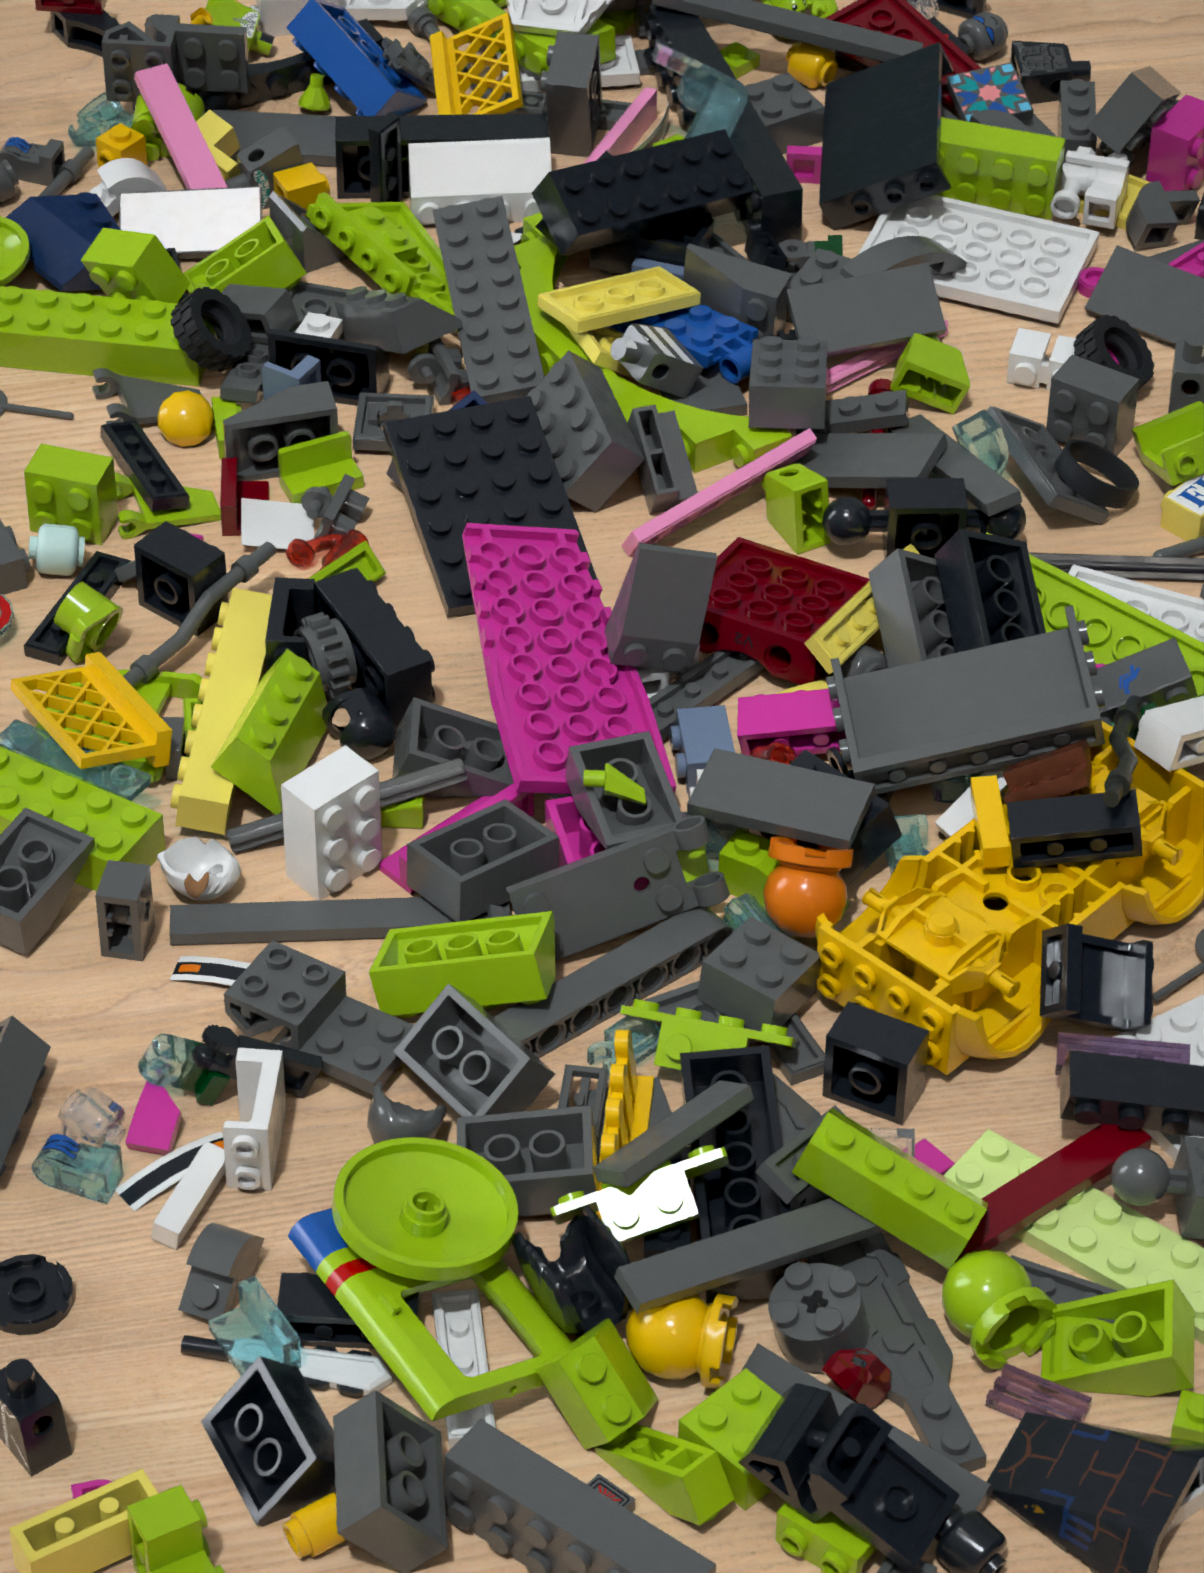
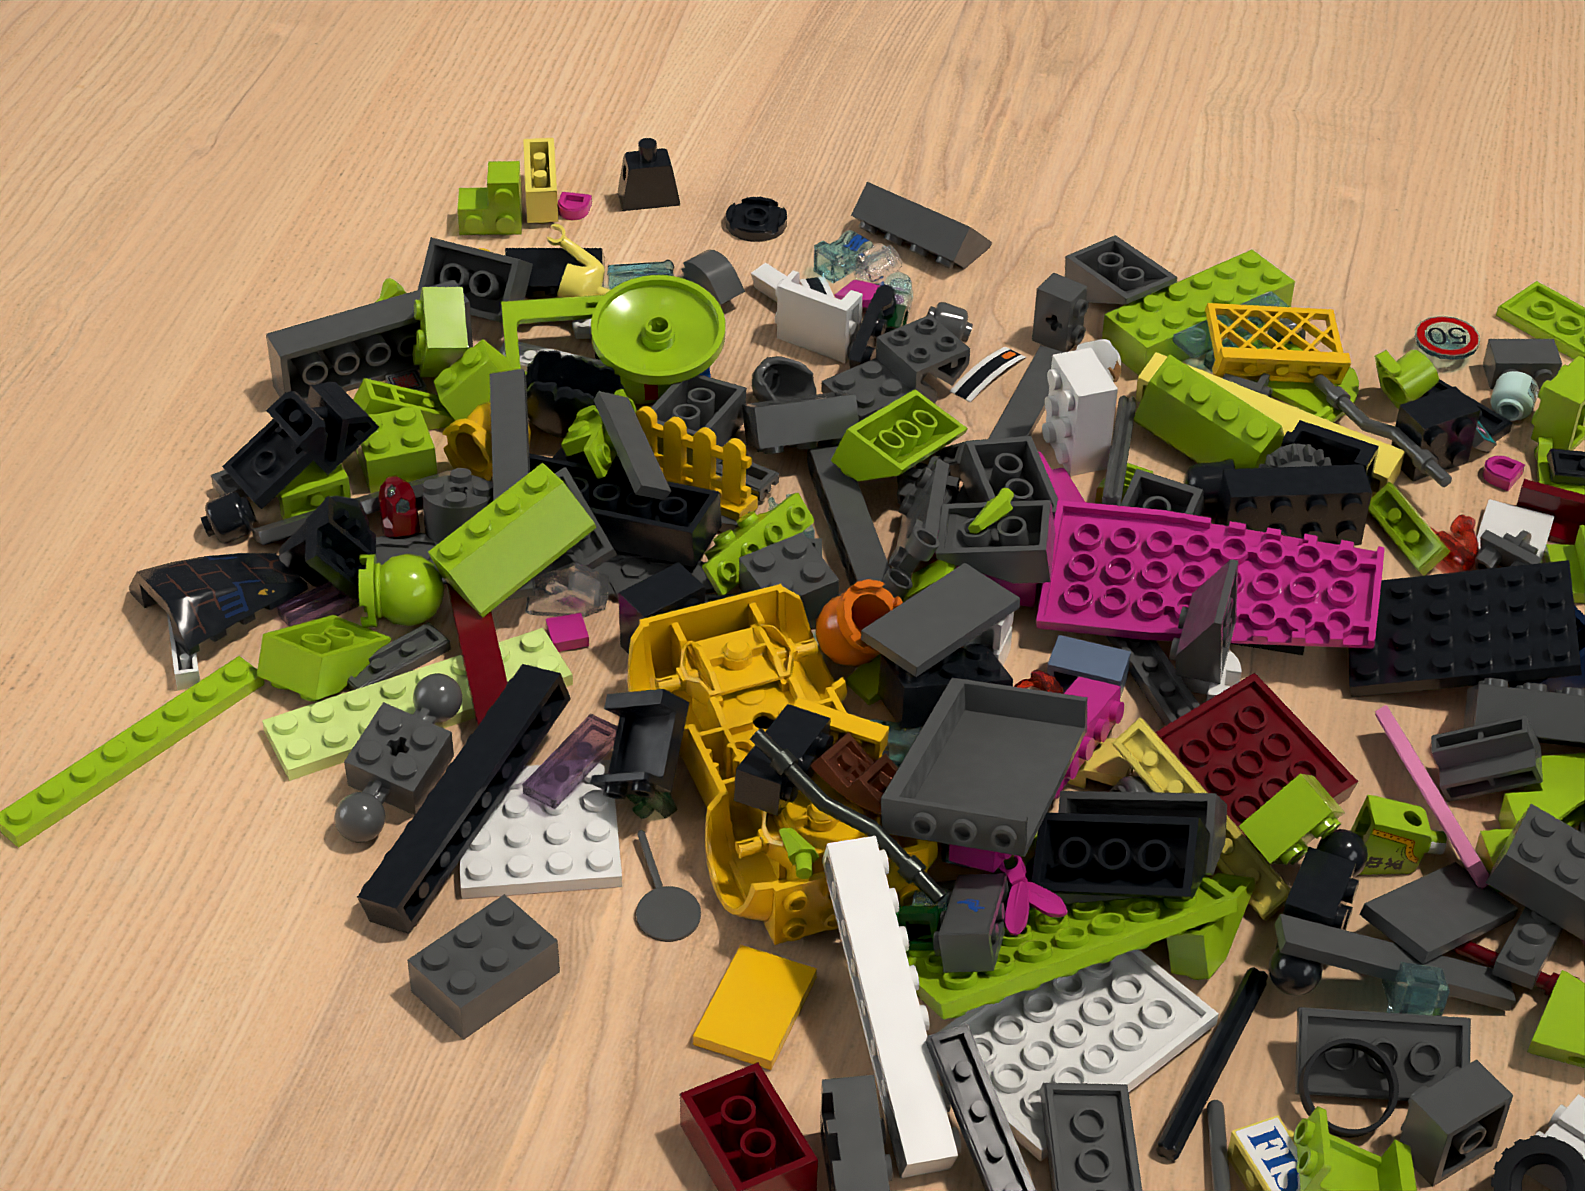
camera: 115 degrees right, 0 degrees up
(181, 1014) = (953, 318): none -> dark grey head
(334, 1369) = (577, 279): none -> light yellow piece
(554, 1420) = (442, 329): none -> lime brick
(867, 521) = (1293, 820): none -> lime brick
(986, 1380) = (331, 544): none -> black piece
(1175, 784) = (799, 852): none -> lime bar

